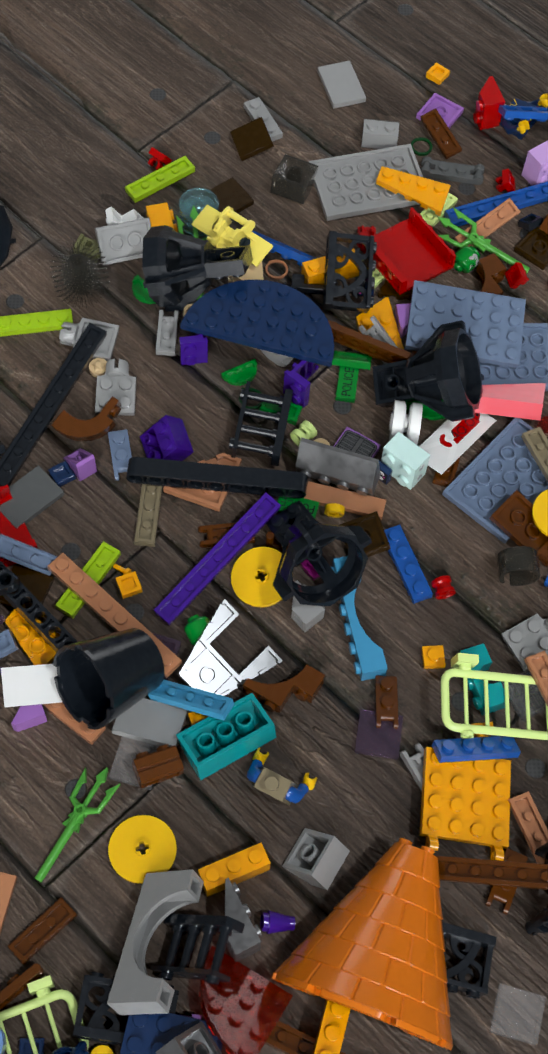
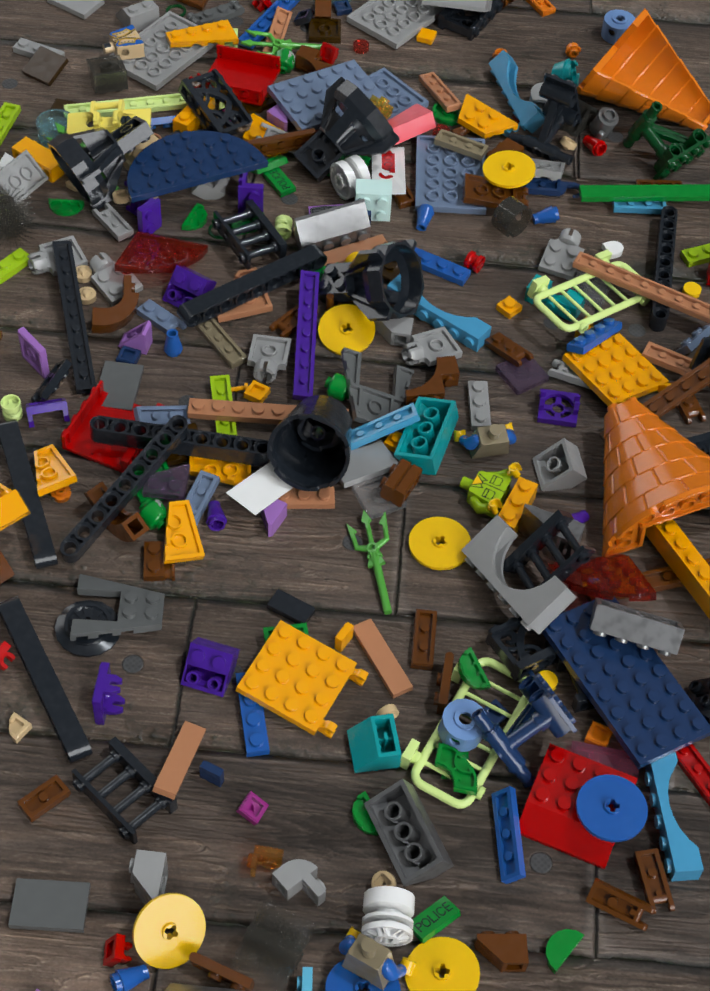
camera: 40 degrees left, 10 degrees down
(38, 999) = (471, 671): none -> green tile
(82, 391) = (88, 295): none -> tan tile
(103, 488) = (173, 345): none -> blue cone
(169, 390) = (158, 254): none -> clear red plate
(171, 556) = (268, 356): none -> light grey plate
(228, 833) = (490, 489): none -> lime torso
(278, 219) = (156, 103): none -> yellowish green tile
(308, 738) = (478, 404): none -> light grey plate
(318, 648) = (429, 345): none -> light grey plate
(334, 157) = (125, 43): none -> tan torso
(377, 772) = (544, 417): none -> dark purple piece
(442, 507) = (424, 216): none -> blue cone
(498, 367) = (383, 105): none -> clear yellow brick

